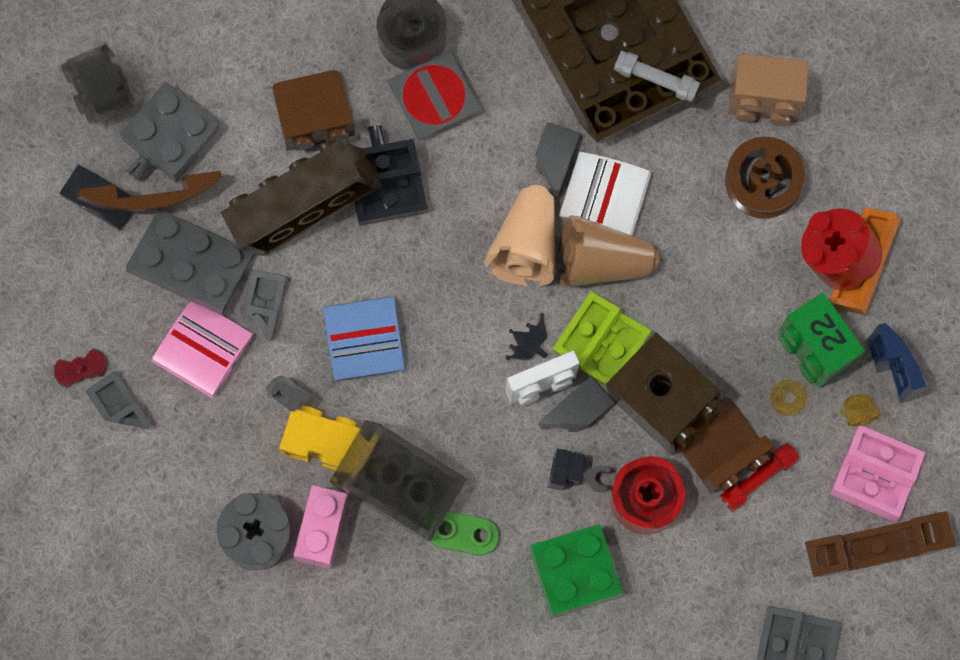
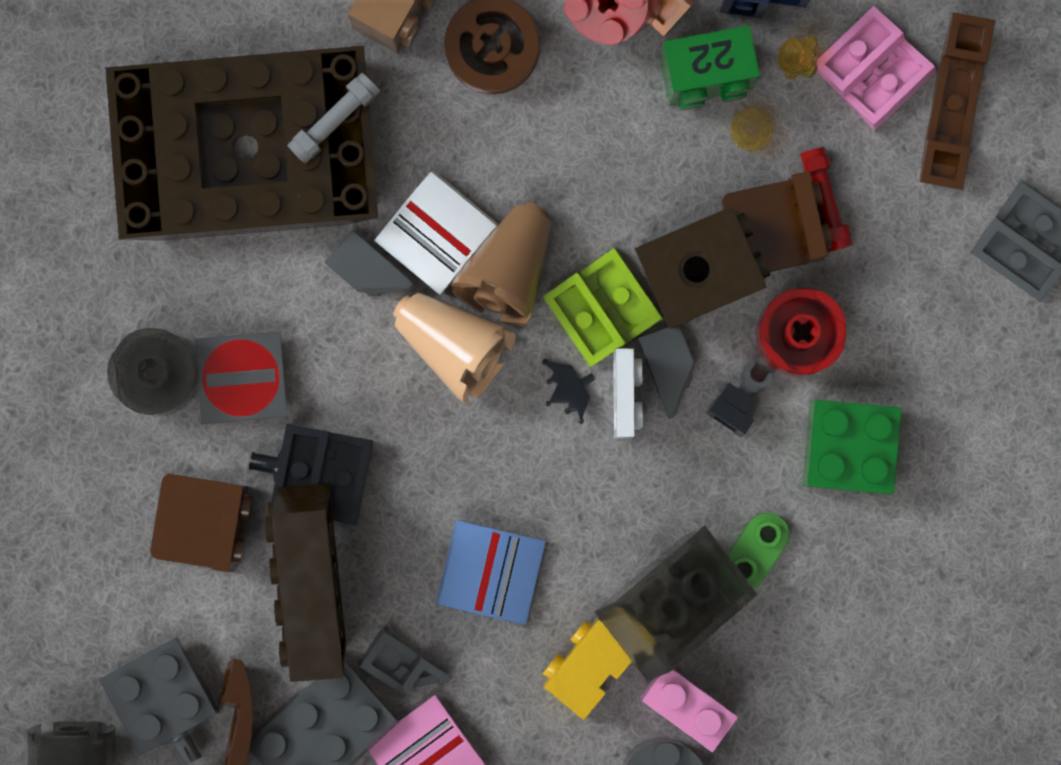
camera: 65 degrees left, 10 degrees up
(288, 393) = (524, 682): dark grey slope -> none

